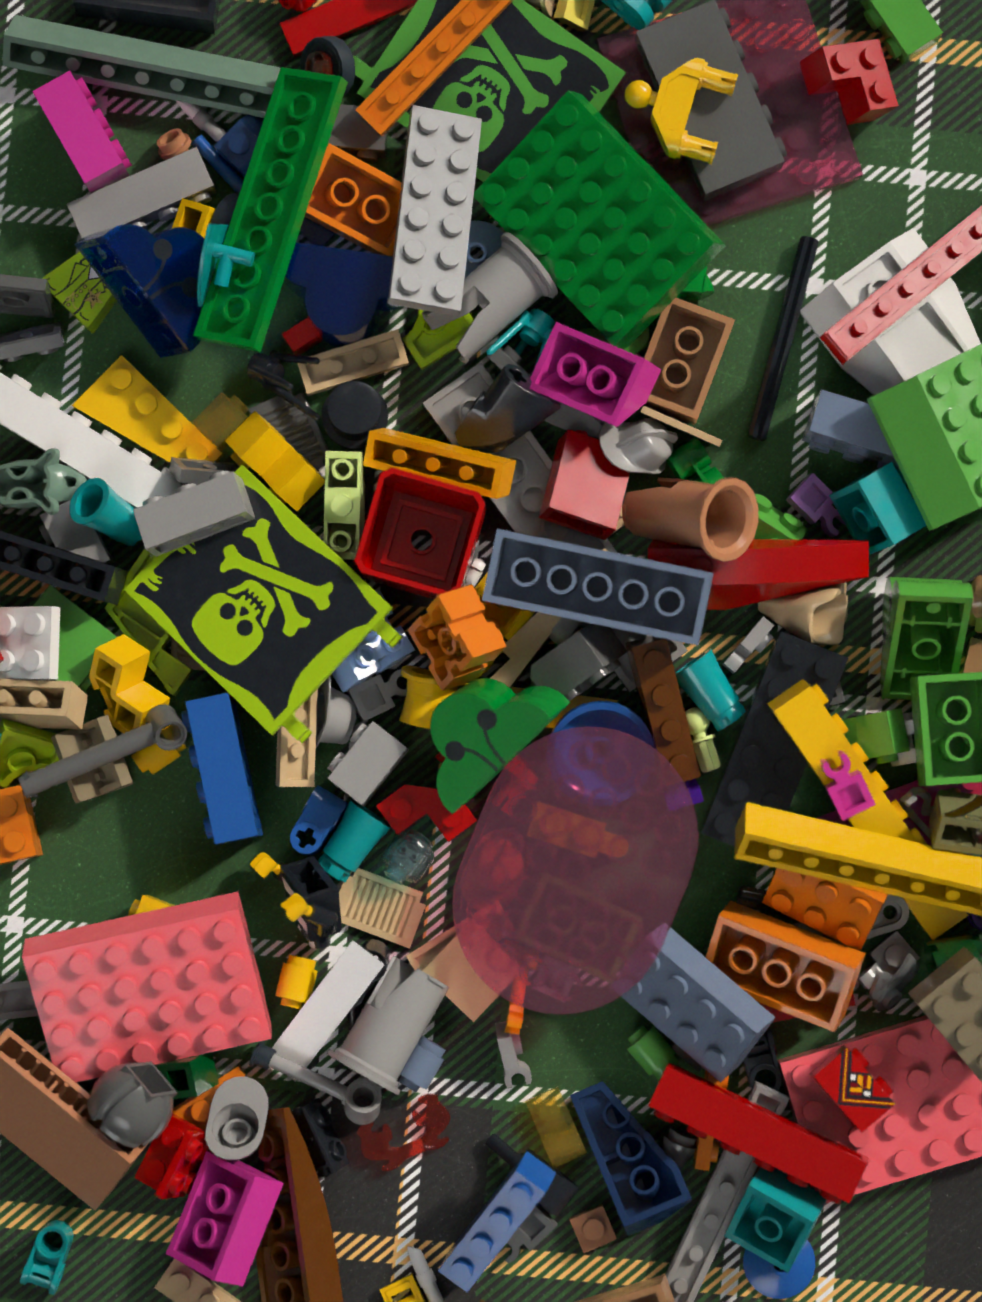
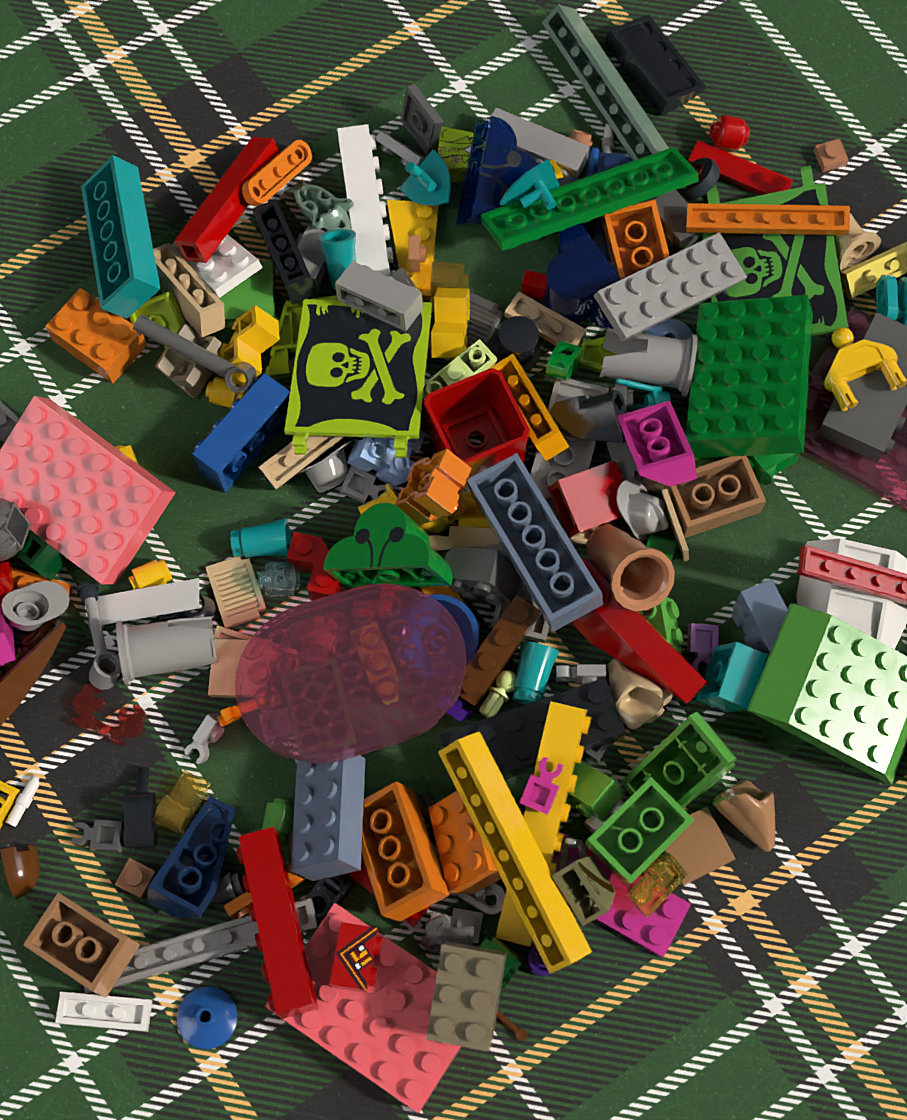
camera: 50 degrees right, 15 degrees down
(83, 131) = (543, 82): dark pink brick -> none
(94, 347) = (428, 182): none -> teal shield
(170, 431) = (416, 253): none -> nougat plate
(270, 372) = (499, 283): black plant -> none
(310, 896) = (205, 539): black torso -> none
(322, 816) = (257, 510): blue piece -> none
(328, 1151) = (69, 657): black hinge -> none
(367, 762) = (316, 508): light grey brick -> none
(418, 388) = (561, 365): none -> green leg
(422, 1065) = (157, 688): sand blue brick -> none
(497, 1221) = (90, 805): blue brick -> none
(775, 1218) = (231, 982): teal brick -> none
(783, 338) = (781, 546): black axle -> none

